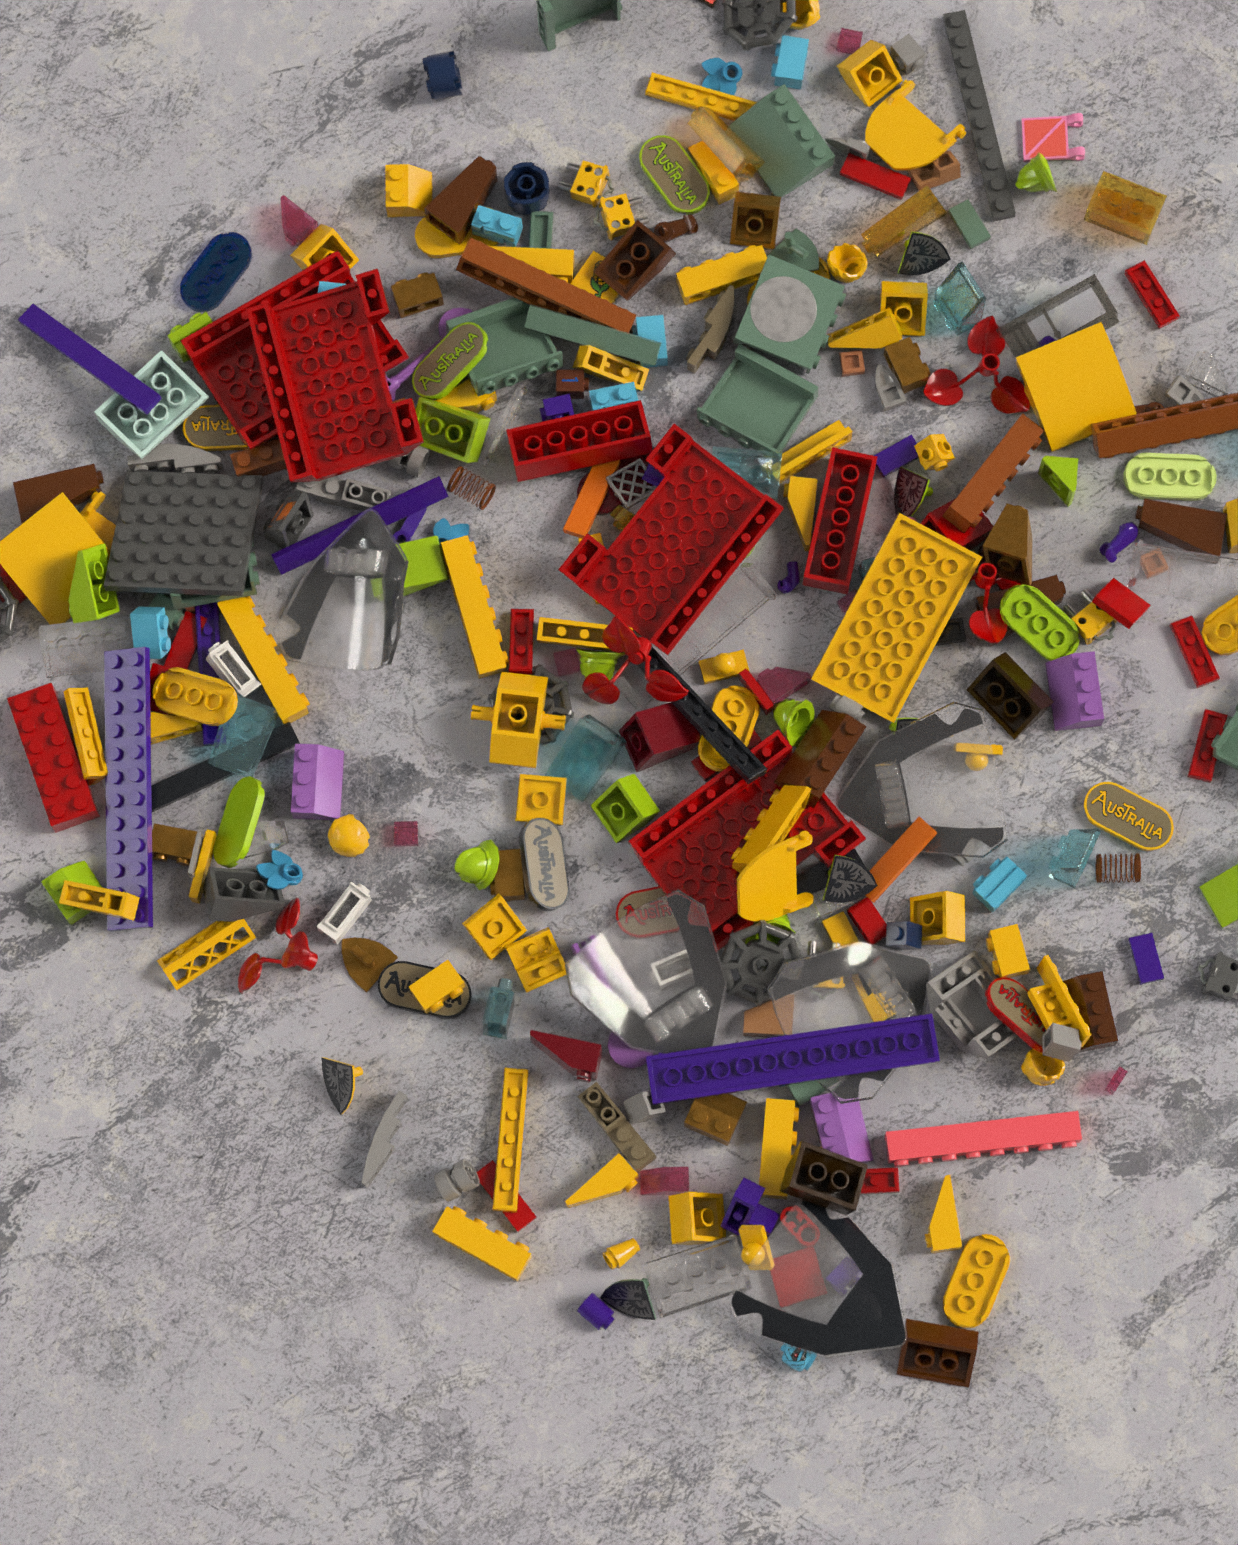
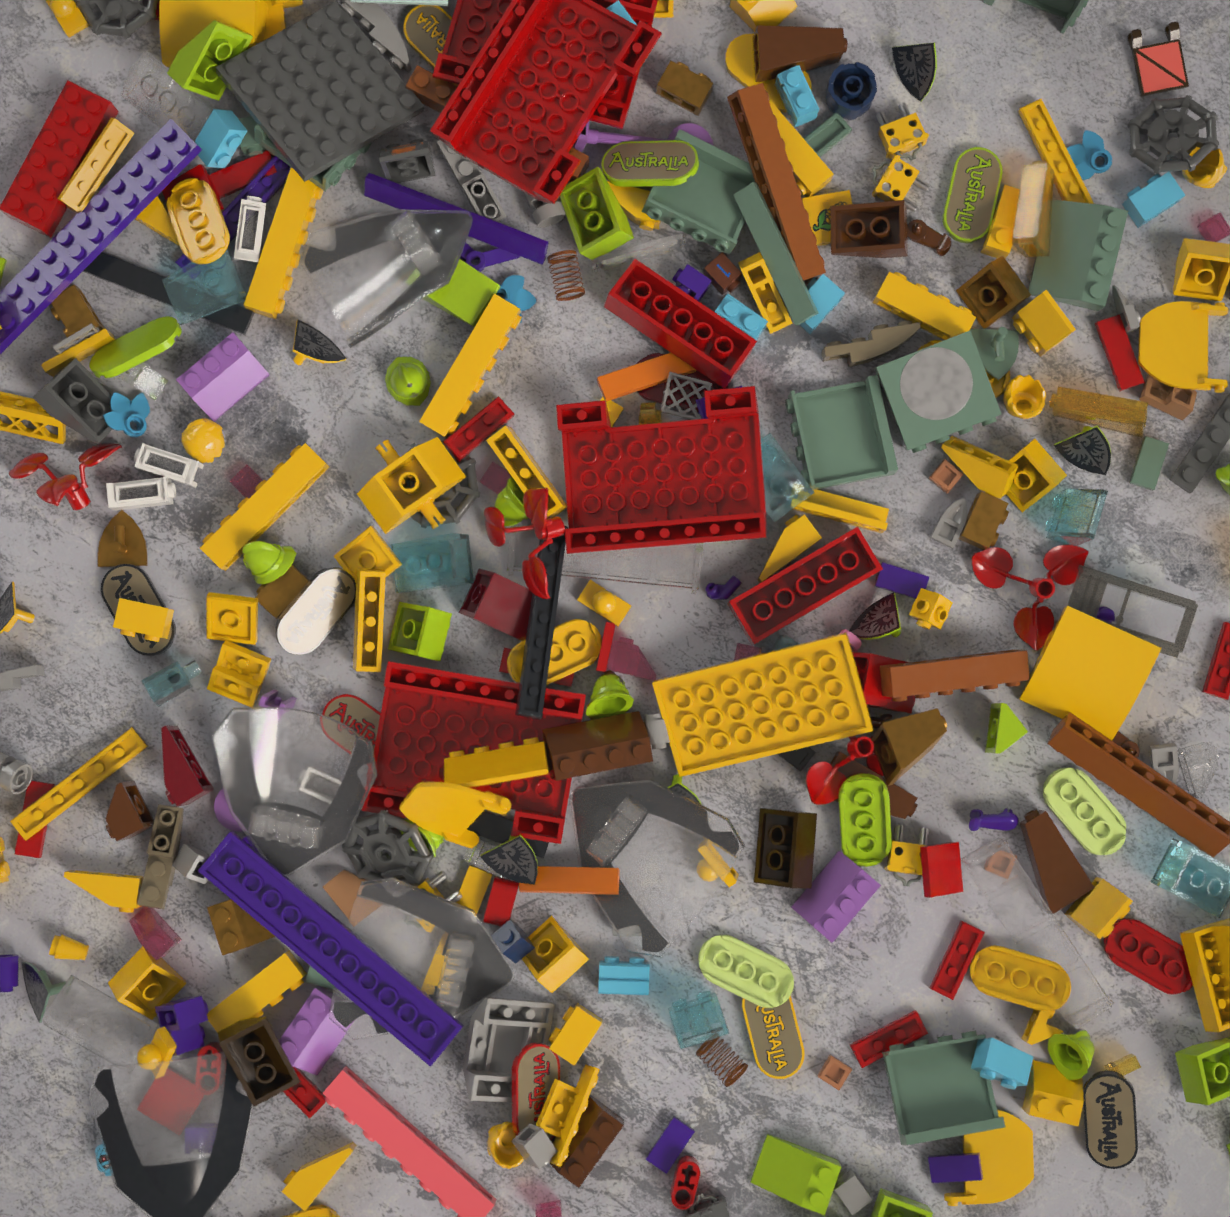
camera: 40 degrees right, 10 degrees up
(338, 877) = (167, 464): none -> white window
(356, 701) = (314, 345): none -> shield
(436, 835) = (264, 506): none -> yellow brick
(440, 661) = (408, 381): none -> lime piece
(552, 132) = (916, 67): none -> shield
(567, 1119) = (127, 813): none -> reddish brown slope
(586, 831) = (369, 620): none -> yellow brick
(808, 206) = (1042, 323): none -> yellow slope
(1071, 797) = (746, 971): none -> yellowish green tile
(1172, 969) = (680, 1184): none -> red beam
(1197, 802) = (834, 1072): none -> nougat tile

